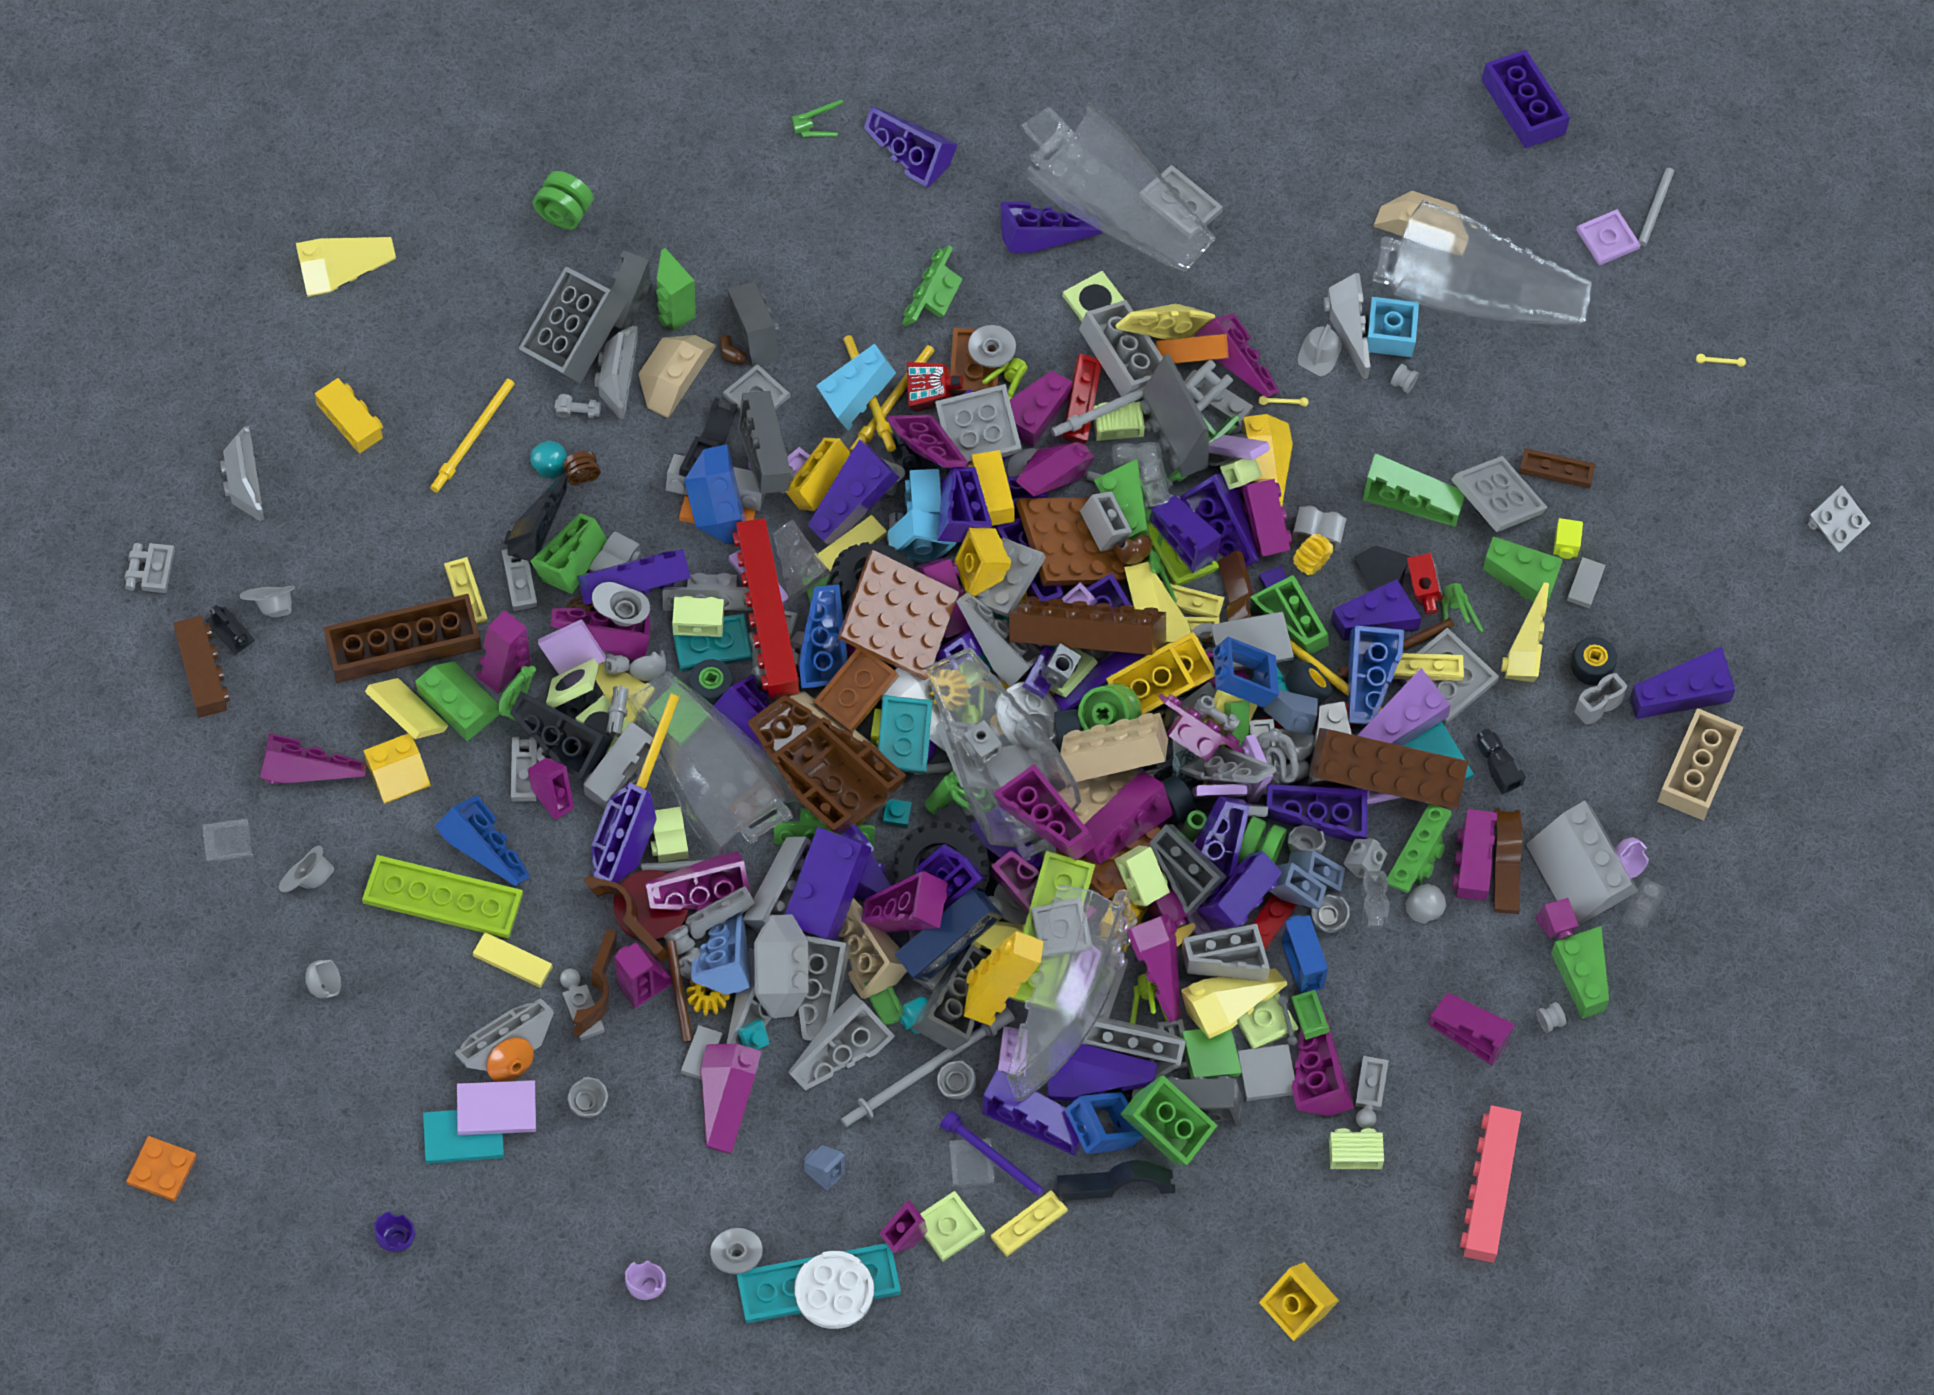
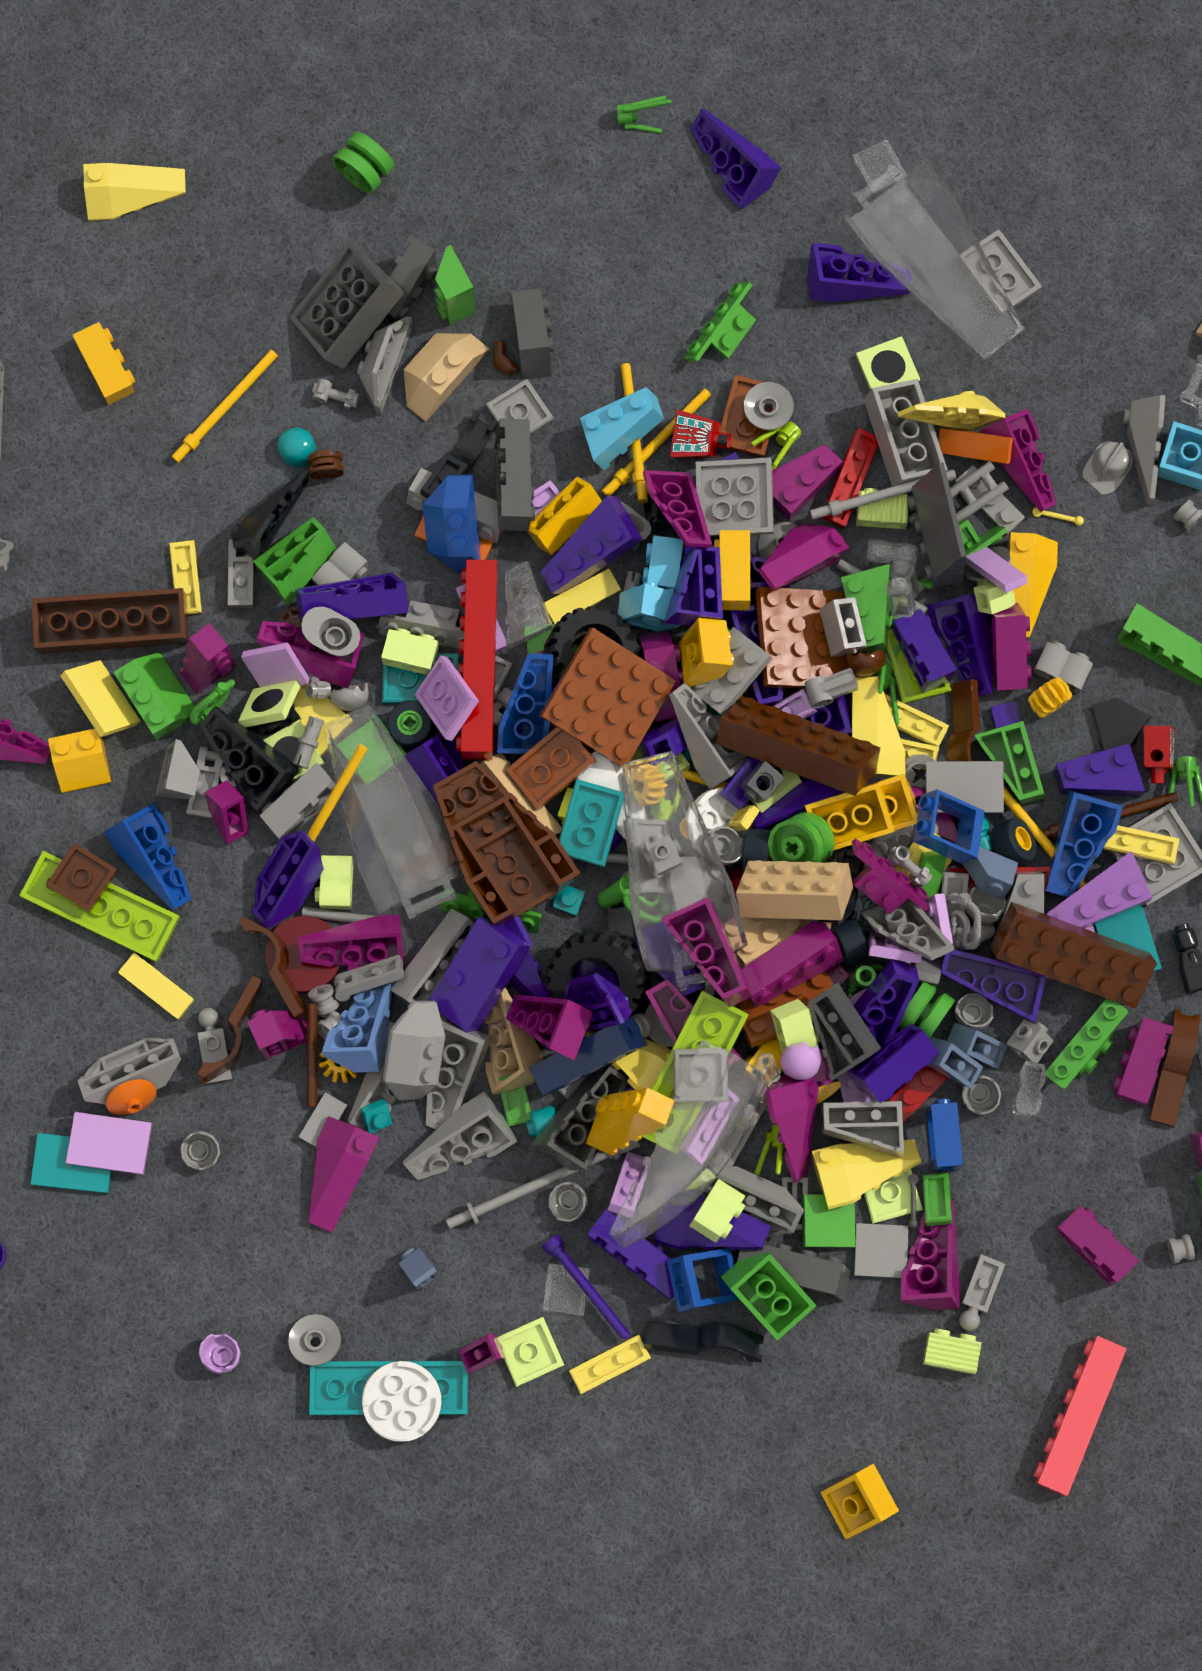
camera: 15 degrees right, 15 degrees up
(421, 870) = (82, 877): none -> reddish brown plate
(496, 761) = (178, 773): none -> light grey slope
(743, 645) = (446, 698): none -> lavender tile
(1050, 703) = (743, 818): none -> light yellow tile
(1100, 577) = (824, 689): none -> light grey piece
(1104, 1051) = (717, 1211): none -> yellowish green brick
(1153, 899) = (801, 1061): none -> lavender hair
(1425, 903) = (1081, 1099): light grey hair -> none

